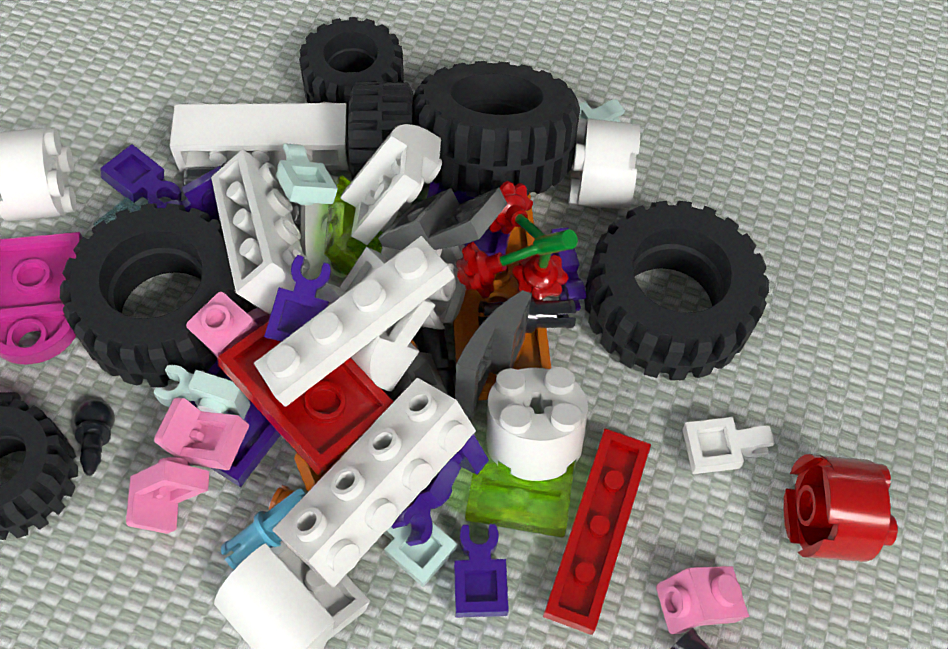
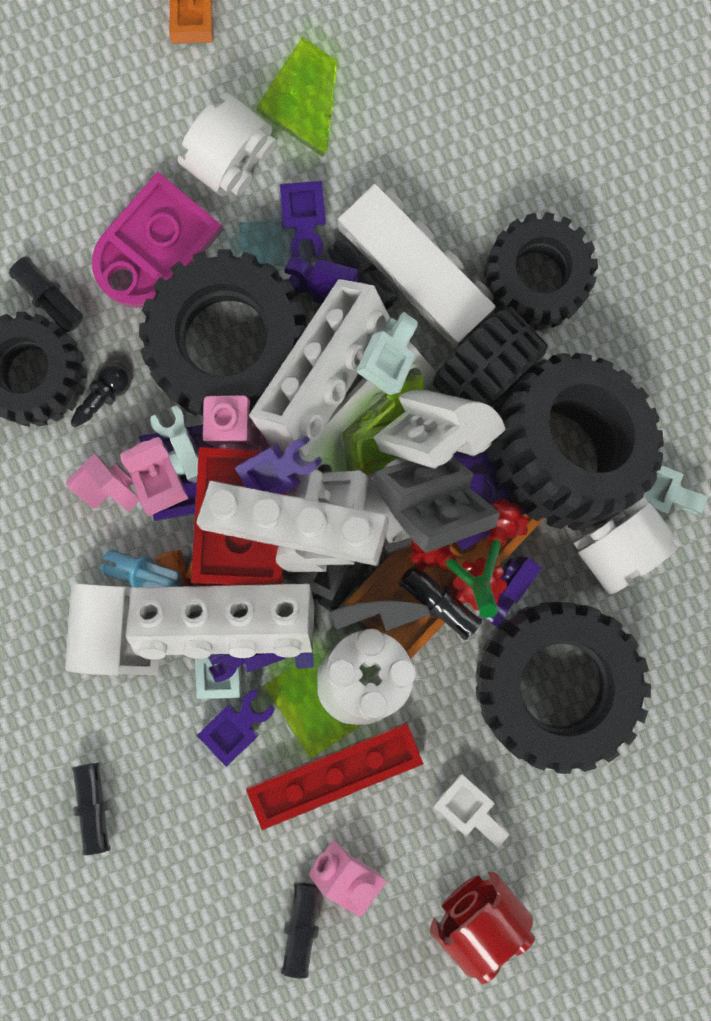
camera: 50 degrees right, 25 degrees up
(59, 104) = (303, 96): none -> clear neon green wing

